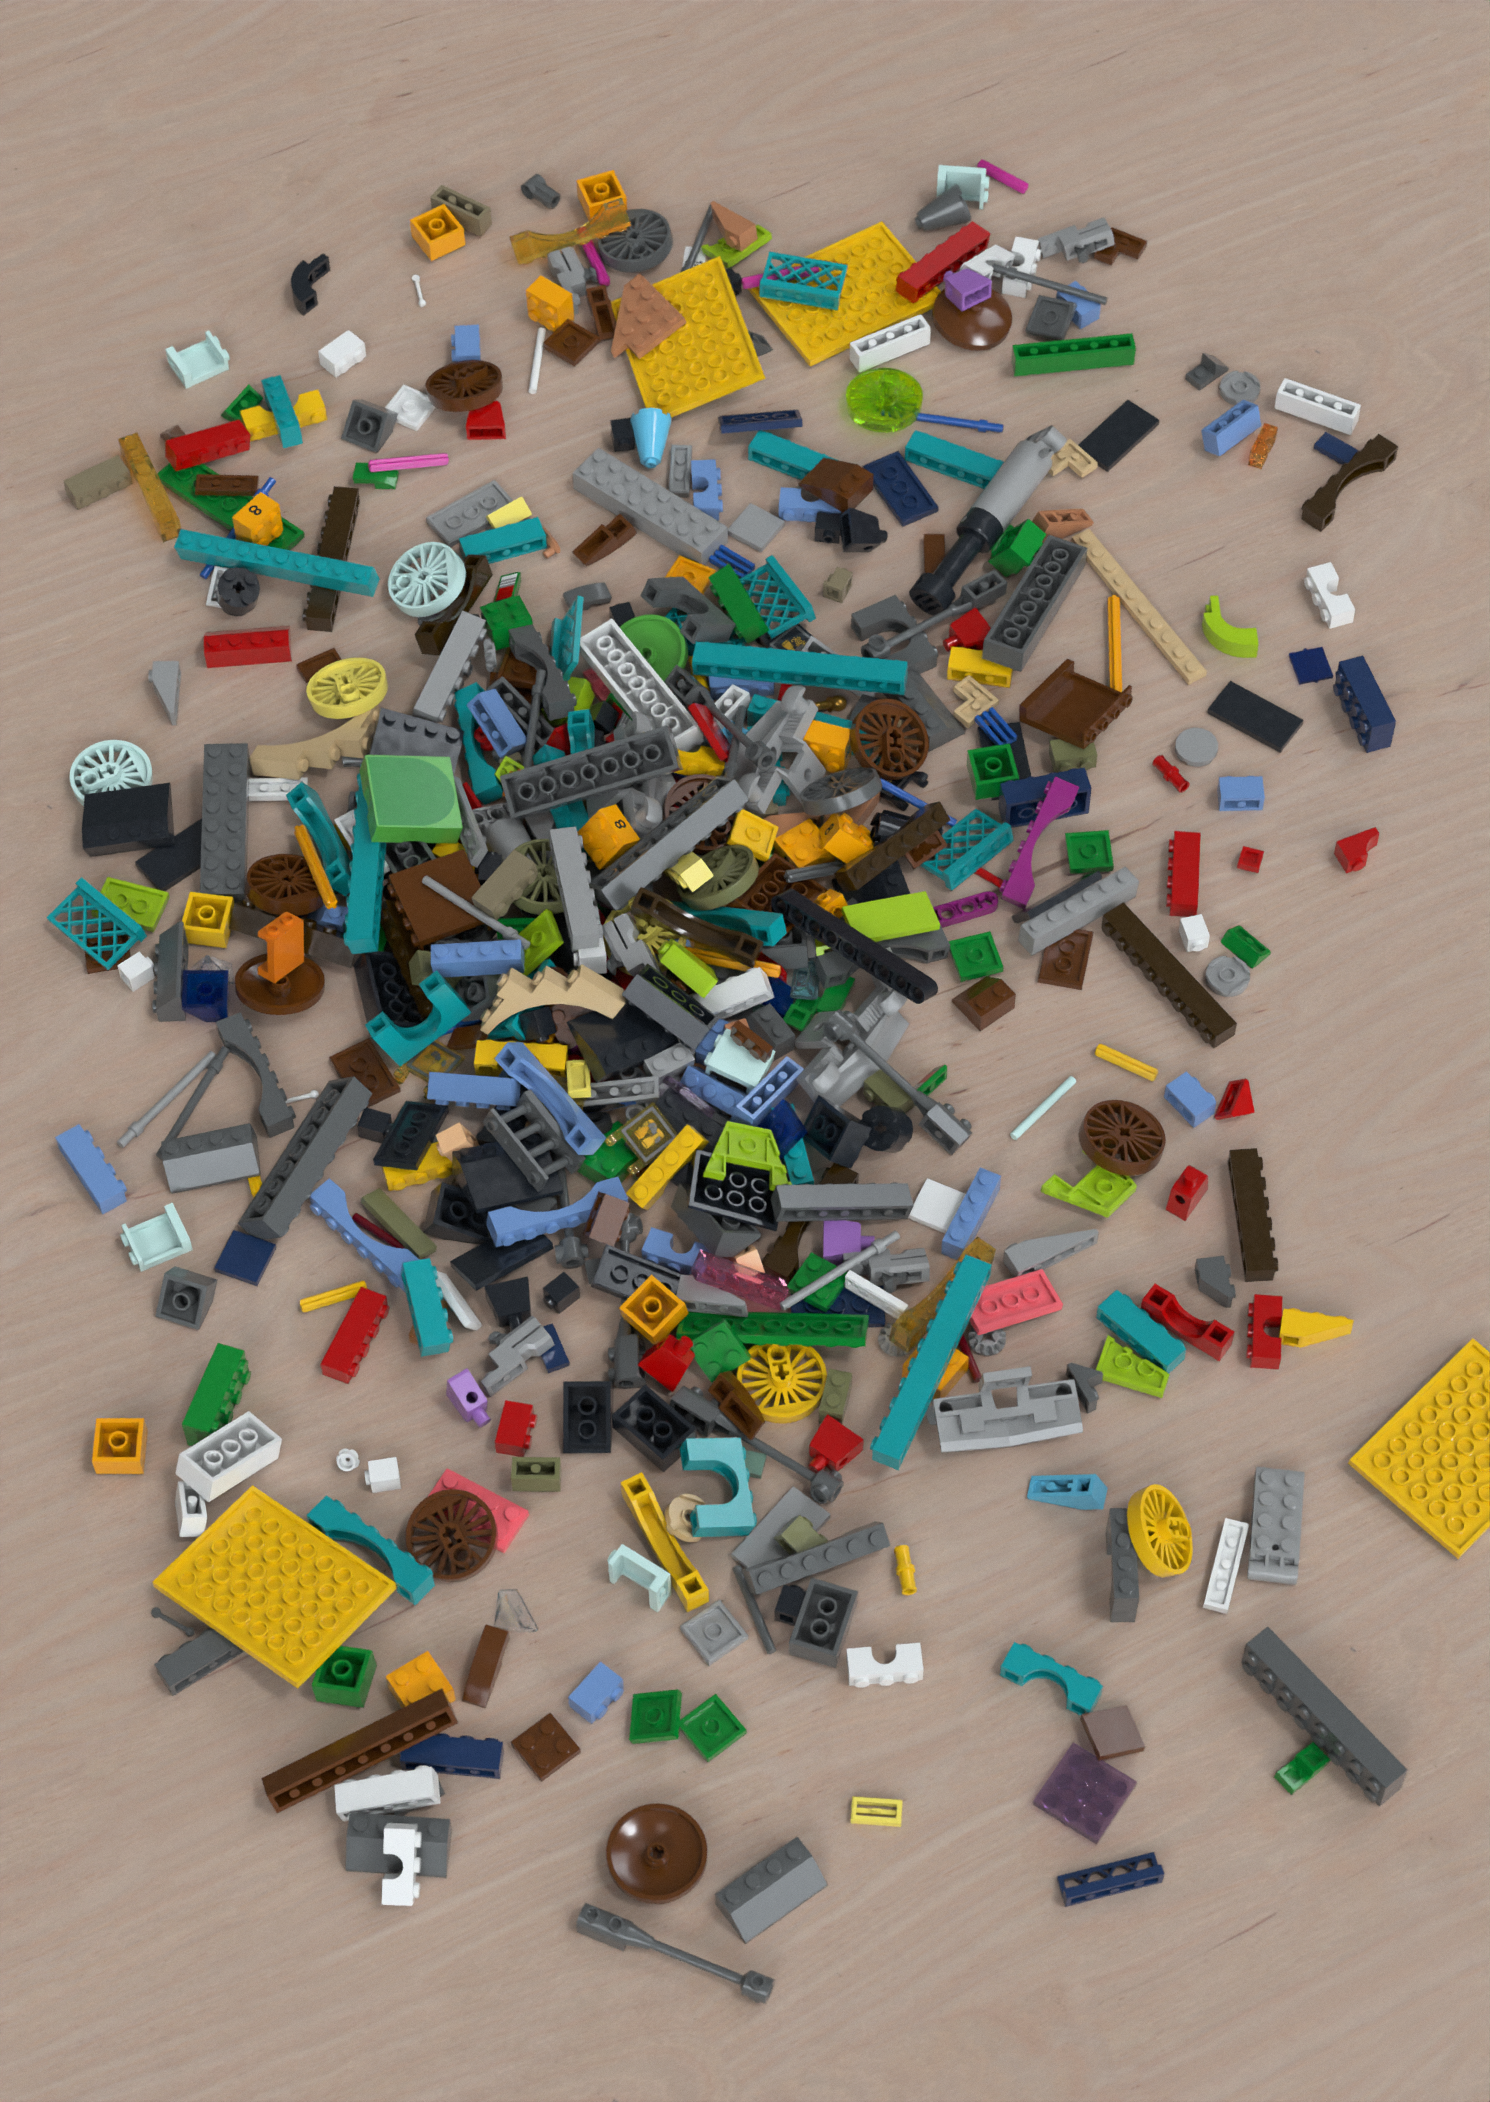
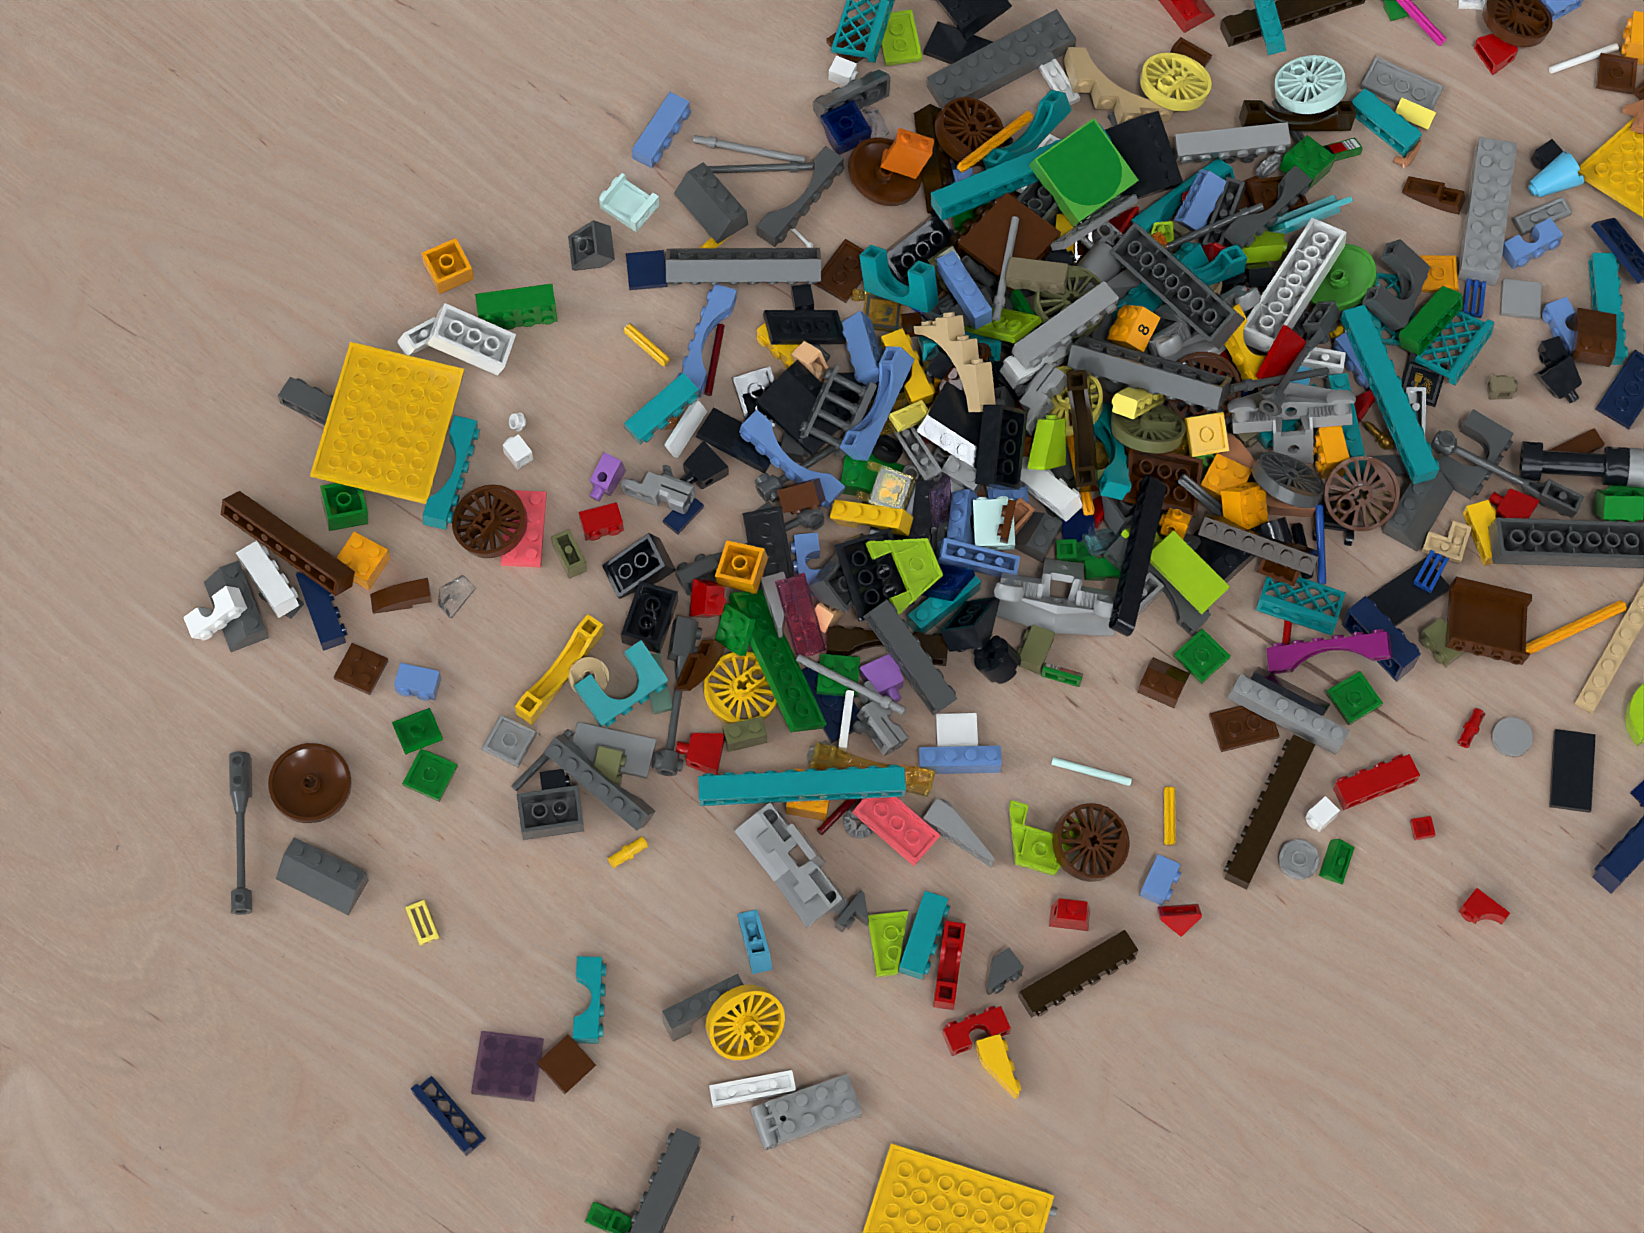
camera: 60 degrees right, 10 degrees up
(156, 1613) = (337, 359): dark grey hinge -> none
(208, 919) = (911, 93): yellow brick -> none
(354, 1335) = (620, 374): red brick -> none
(398, 1224) = (728, 357): olive tile -> none
(561, 1293) = (730, 497): black brick -> none
(593, 594) = (1370, 205): dark grey slope -> none
(621, 613) = (1368, 241): black brick -> none
(642, 1571) = (519, 683): light aqua panel -> none
(865, 1670) = (549, 888): white arch -> none
(937, 1118) = (1031, 694): dark grey bar -> none
(959, 915) = (1240, 621): magenta beam -> none
(989, 768) = (1381, 584): green brick -> none
(1240, 793) = (1484, 791): medium blue brick -> none

